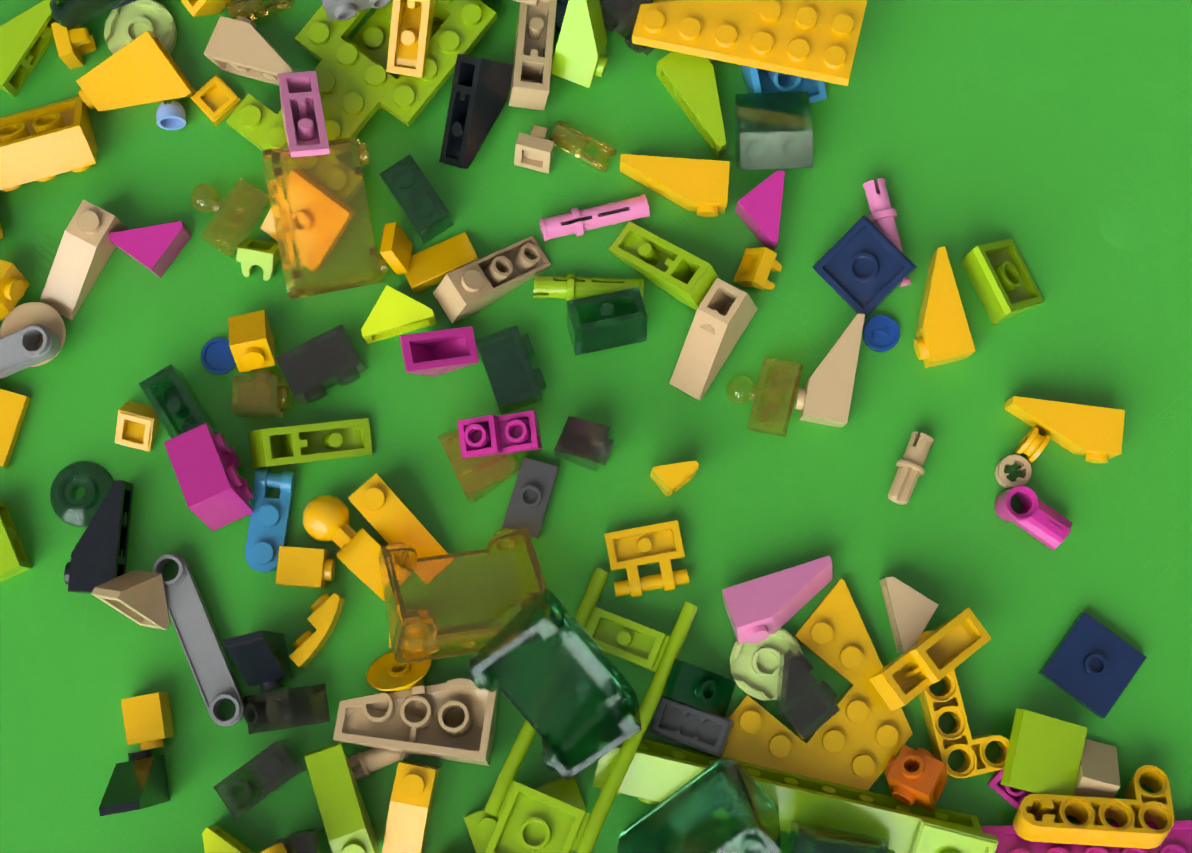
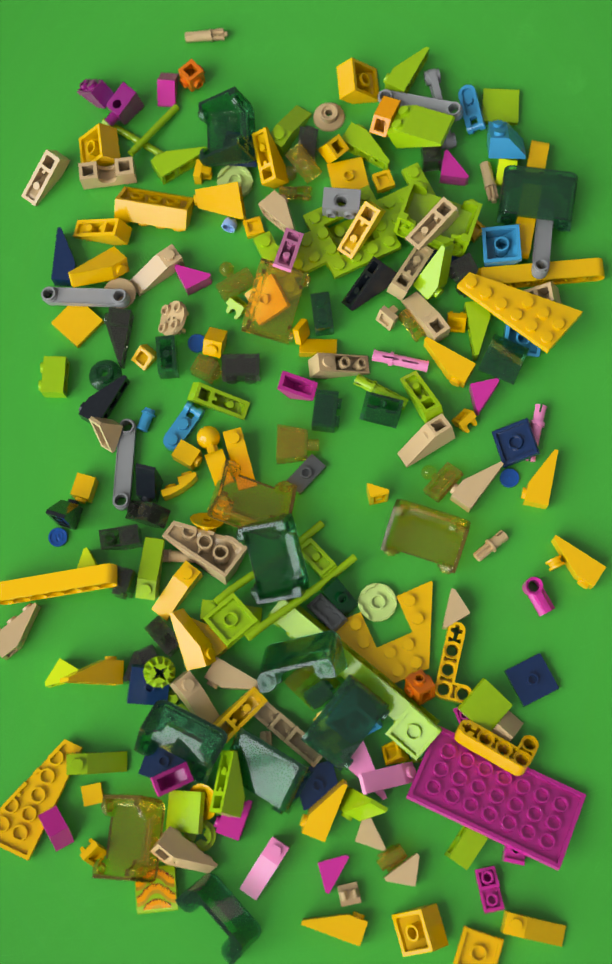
camera: 35 degrees right, 5 degrees down
(64, 396) = (119, 327): none -> clear smoke slope
(144, 829) = (58, 537): none -> blue piece
(154, 334) = (173, 318): none -> tan plate
(196, 540) = (145, 420): none -> dark azure pin
(210, 476) = (166, 393): dark pink brick -> none
(396, 315) = (285, 361): neon yellow slope -> none
(499, 434) = (305, 437): dark pink slope -> none
(585, 443) = (343, 460): clear smoke slope -> none
(603, 118) = (427, 317): none -> tan slope
(642, 547) = (347, 521): yellow plate -> none
(657, 103) = (457, 321): none -> yellow tile
(768, 602) = (393, 573): bright pink slope -> none
(795, 502) = (426, 534): none -> clear yellow windscreen
(800, 697) = (383, 624): clear smoke slope -> none
(930, 659) = (452, 634): yellow slope -> none
(1001, 280) = (580, 480): lime slope -> none
(1025, 468) = (539, 566): tan bush -> none

